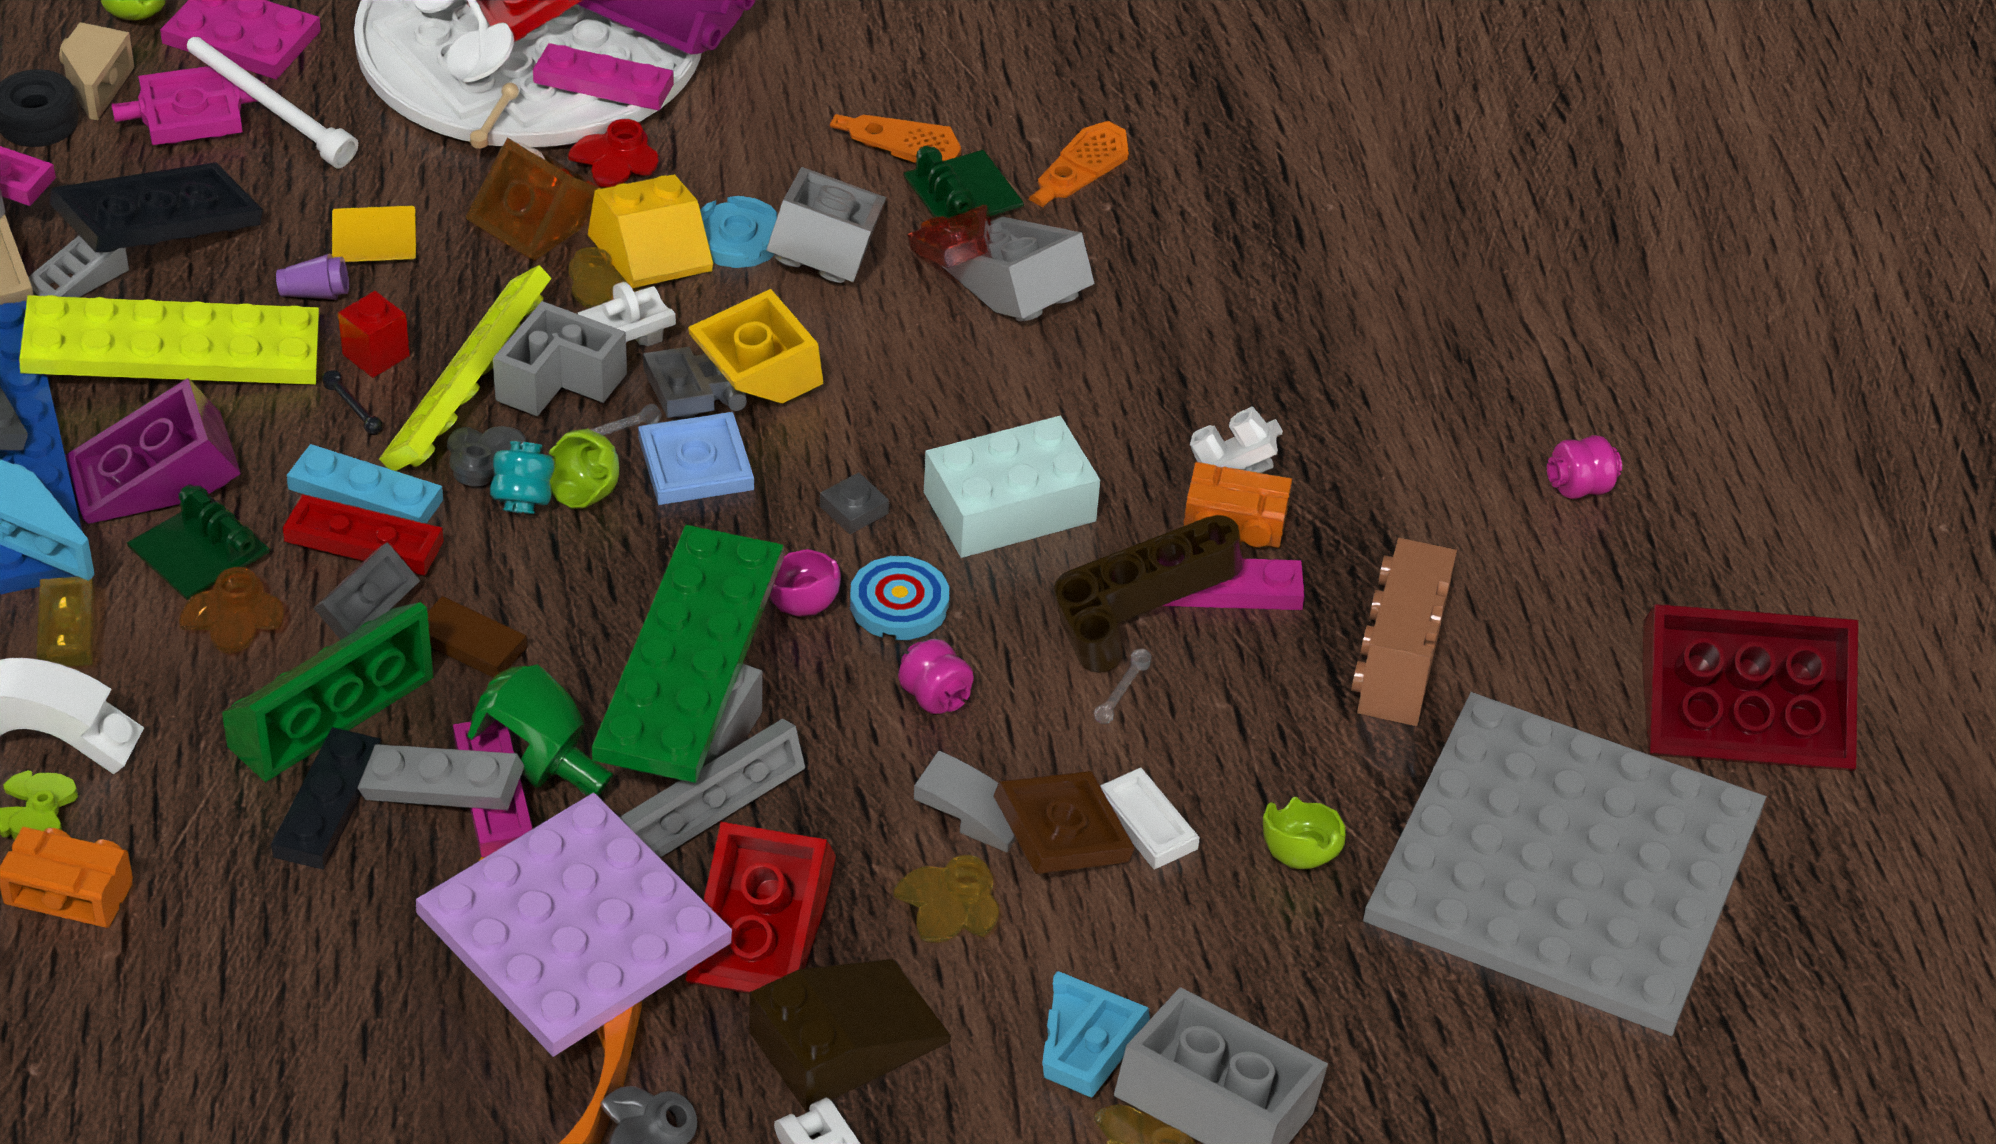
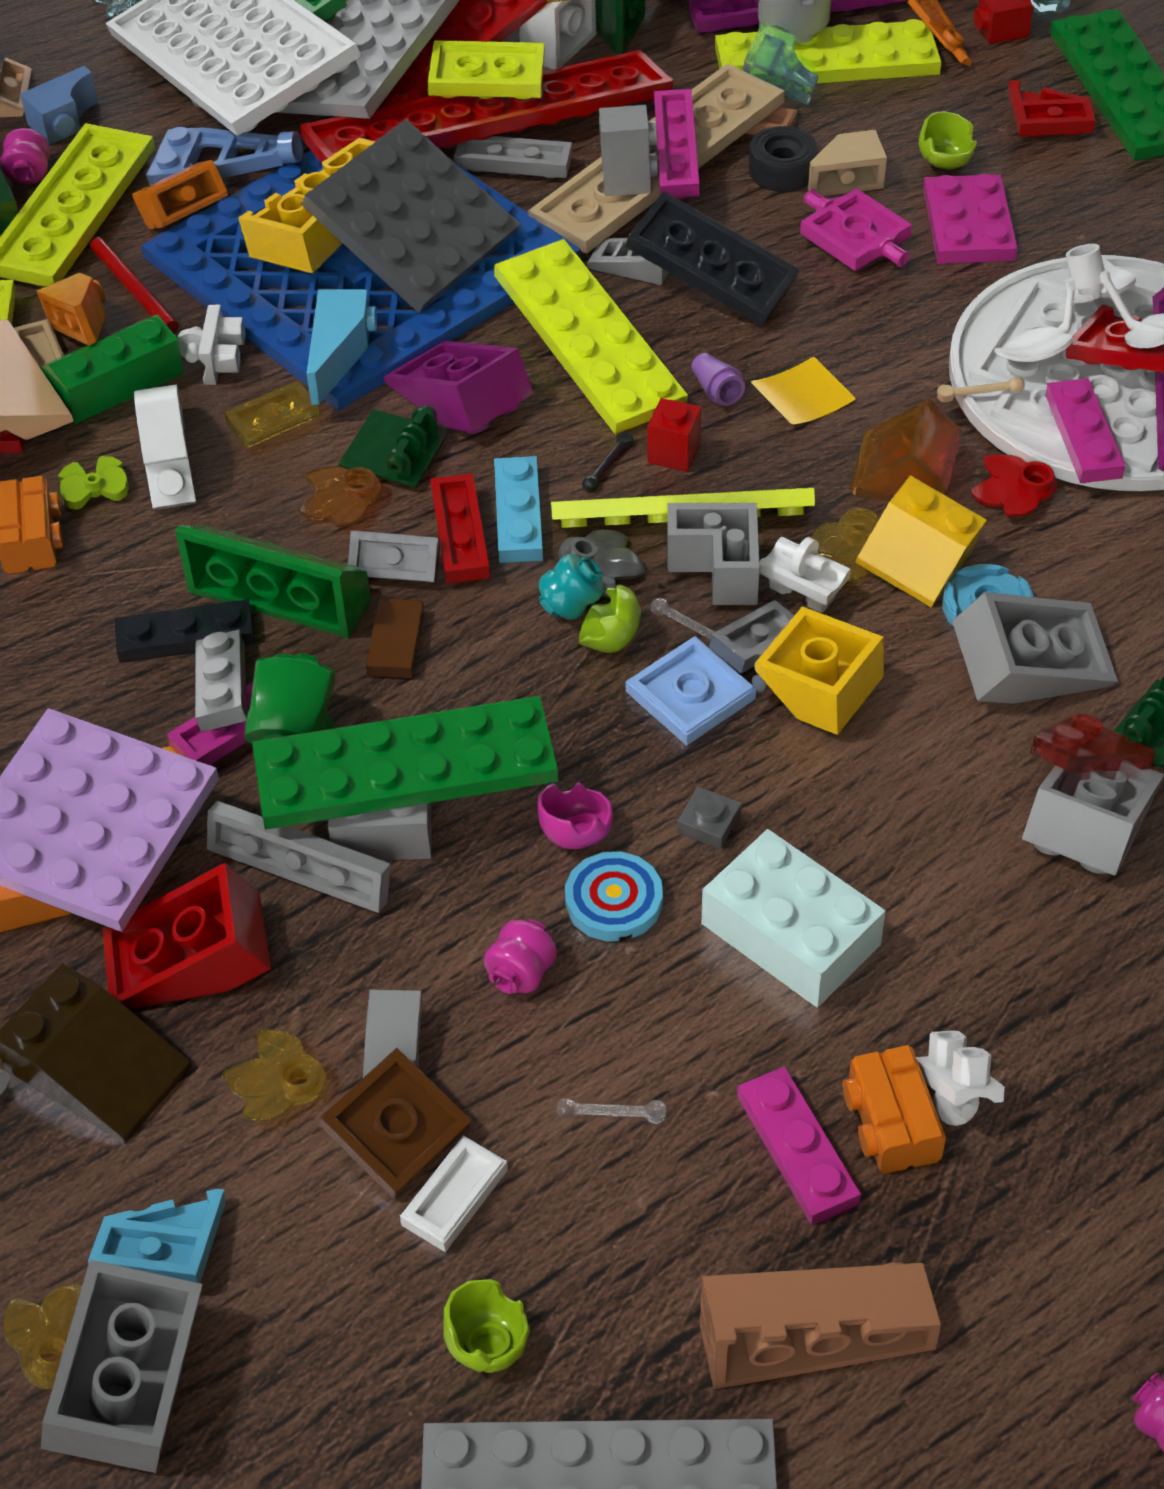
camera: 70 degrees right, 5 degrees up
(335, 145) = (875, 321): white piece -> none
(1139, 580) = (686, 1037): dark brown beam -> none

